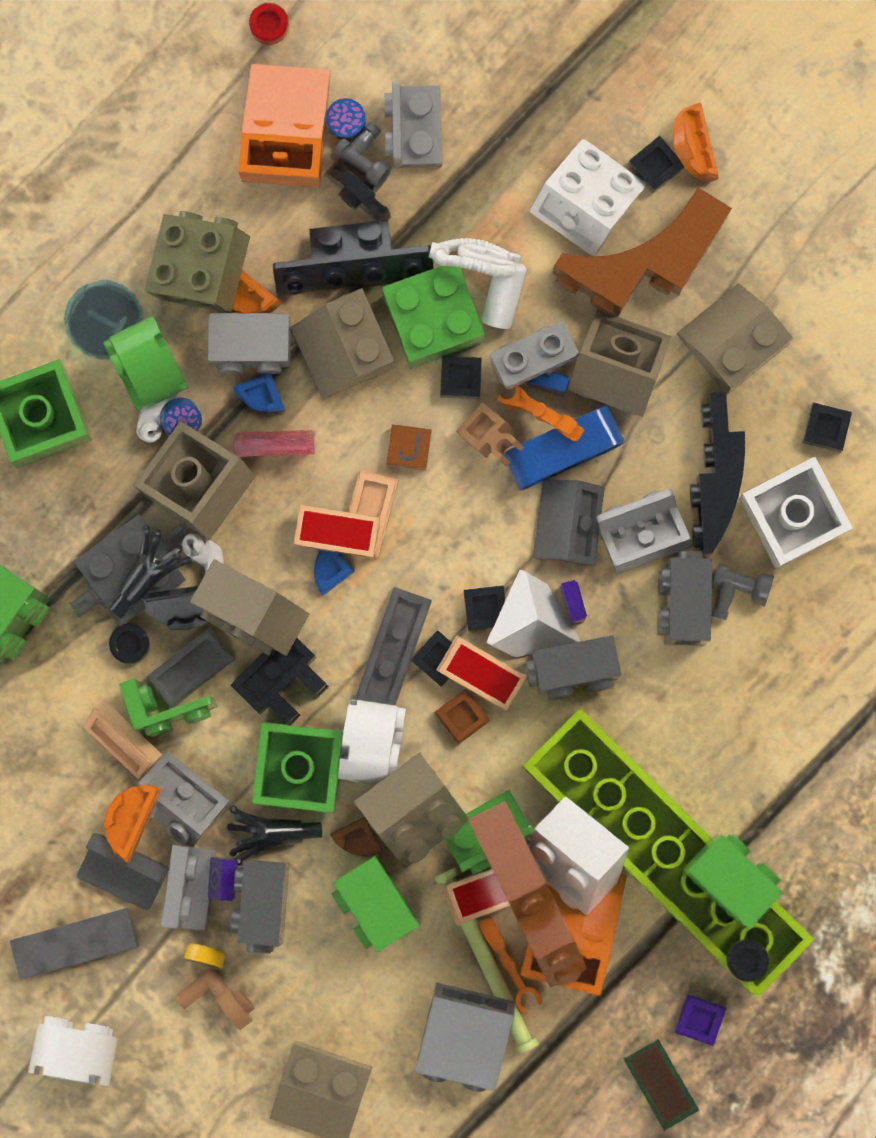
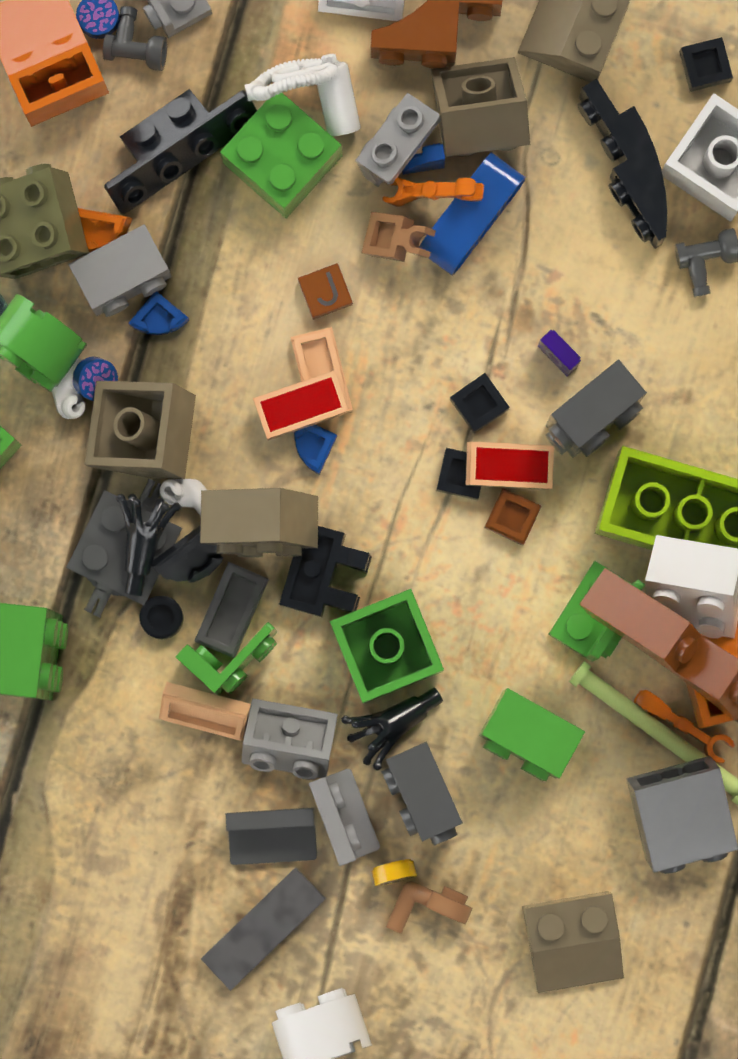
camera: 30 degrees left, 0 degrees up
(128, 818) = (252, 780): orange plate -> none
(222, 878) = (372, 790): dark purple tile -> none
(274, 443) = (197, 354): clear pink tile -> none
(343, 344) = (211, 227): dark tan slope -> none
(357, 193) = (146, 78): black plate -> none
(358, 839) = (477, 684): dark orange tile -> none
(371, 741) = (444, 585): white brick -> none
(393, 647) = (414, 489): flat silver tile -> none
(412, 810) = (517, 627): dark tan brick -> none
(461, 377) = (338, 200): black tile -> none
(475, 897) = (620, 676): red tile -> none
(530, 619) = (528, 391): white slope -> none
(568, 521) = (513, 280): dark grey panel -> none
(643, 530) = (588, 251): light grey bracket -> none
(688, 600) = (666, 291): dark grey brick -> none

